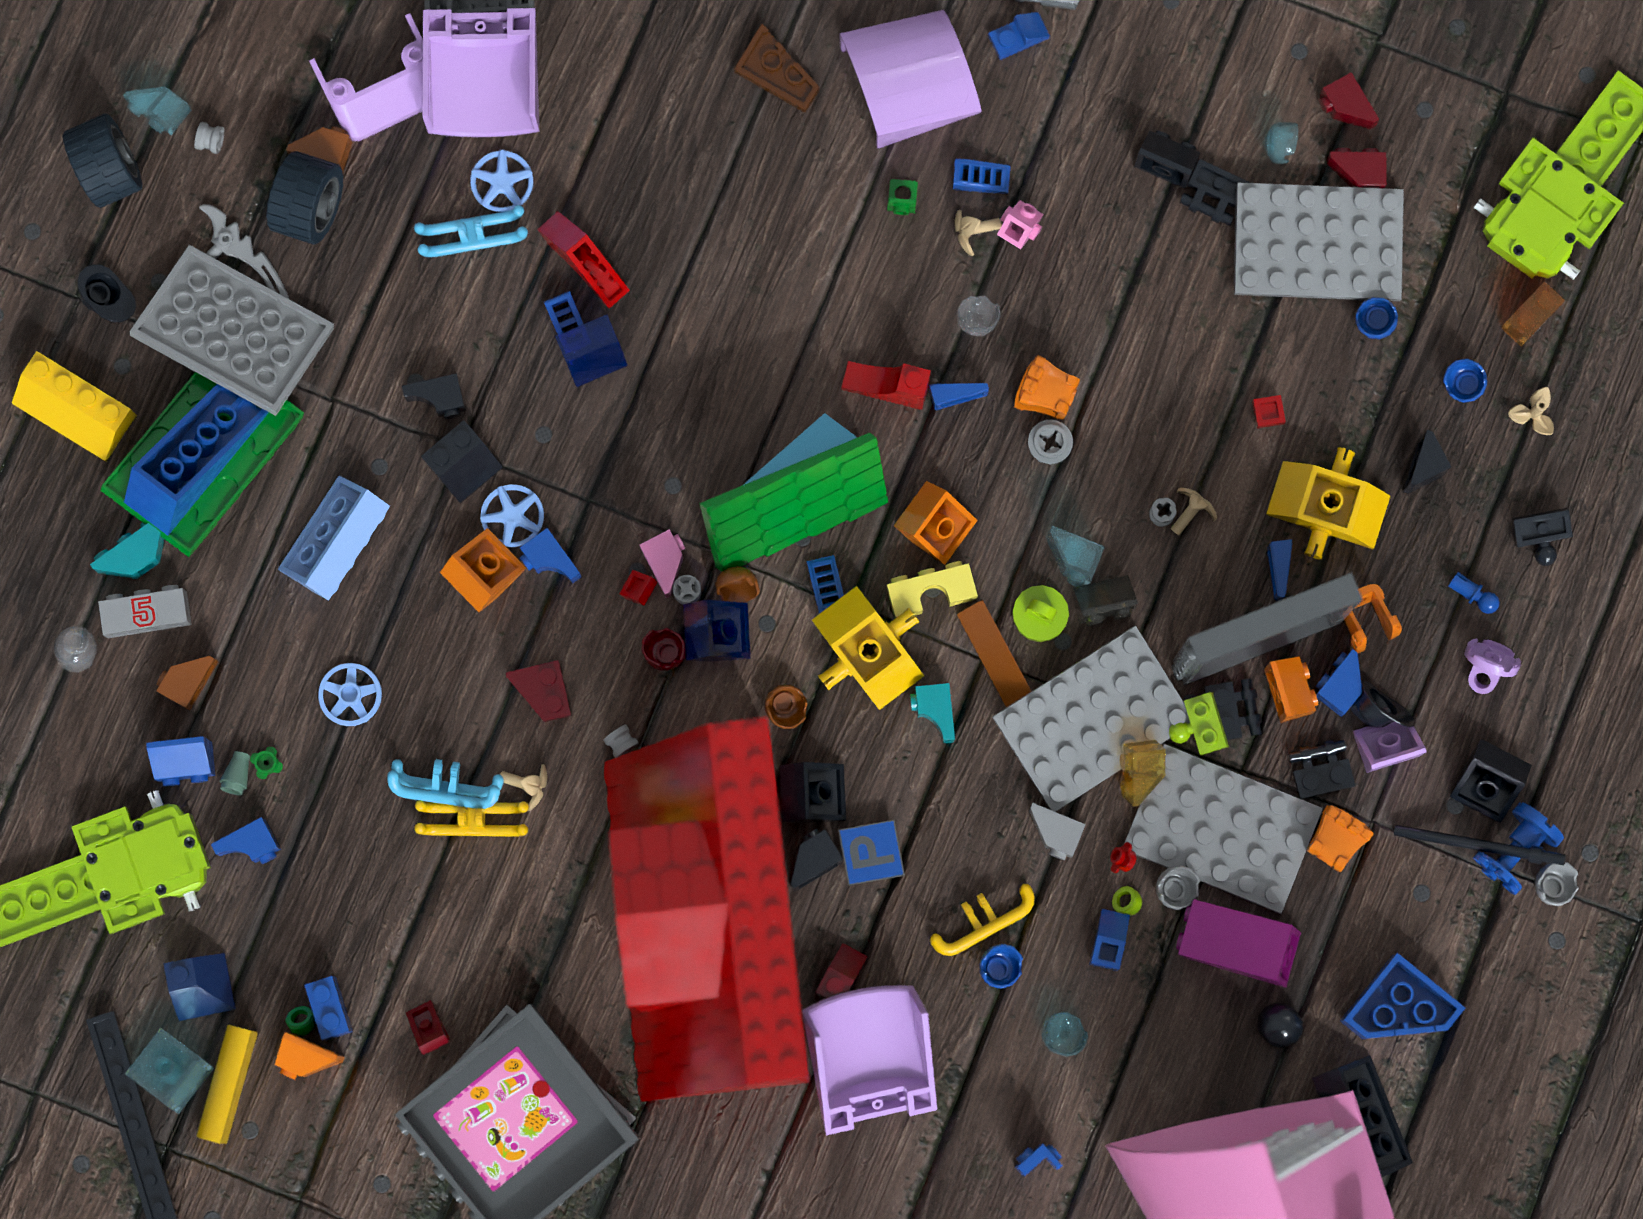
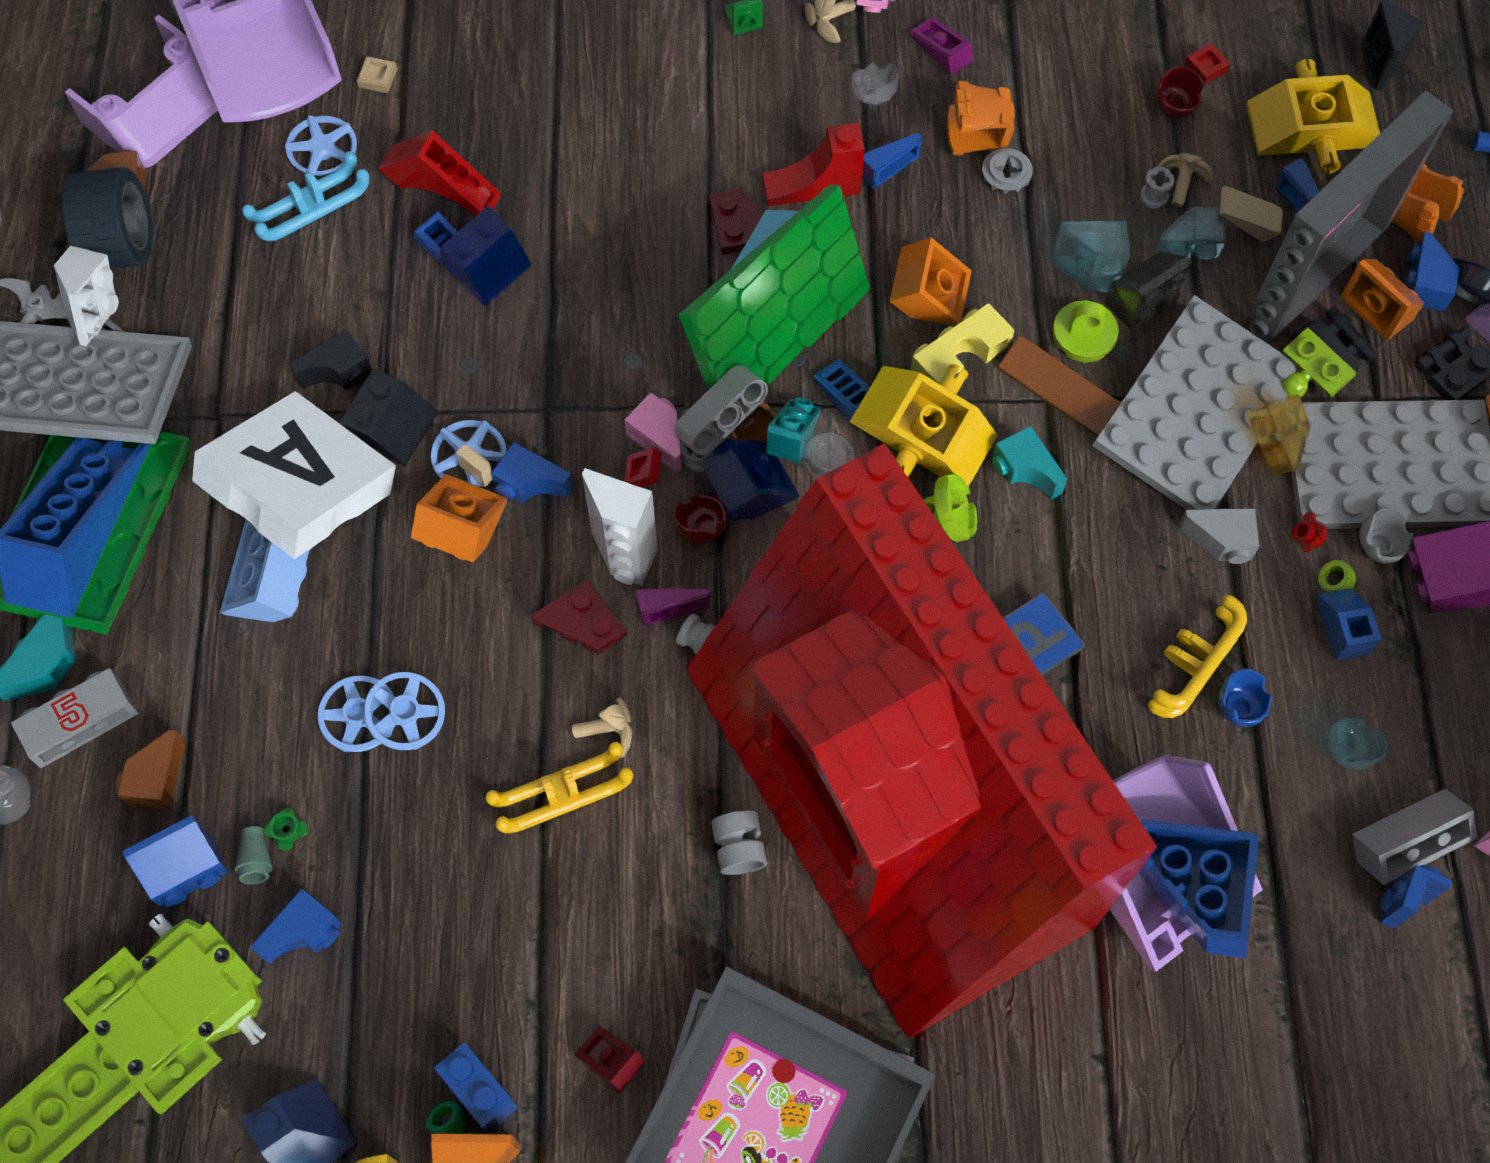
camera: 25 degrees left, 15 degrees down
(266, 258) = (86, 291): none -> white slope
(371, 487) = (293, 473): none -> white tile
(383, 708) = (404, 711): none -> light blue wheel
(443, 791) = (512, 773): medium azure piece -> none
(510, 534) = (474, 465): none -> tan tile
(573, 128) = (377, 74): none -> tan tile
(581, 914) = (738, 840): none -> light grey wheel
(594, 647) = (621, 525): none -> white slope
(604, 706) = (665, 604): none -> magenta slope
(712, 574) = (721, 410): none -> light grey beam
(768, 603) = (792, 429): none -> teal slope
(784, 638) = (826, 453): none -> clear hair
(809, 395) = (734, 219): none -> dark red wing
(857, 724) = (952, 507): none -> lime tile
(886, 1090) = (1205, 882): none -> blue brick
(1057, 295) = (943, 45): none -> magenta slope
(1066, 1120) = (1414, 836): none -> light grey brick
(1171, 566) = (1195, 234): none -> clear light blue slope
(1223, 570) = (1251, 214): none -> tan slope
(1227, 432) = (1179, 92): none -> dark red hair

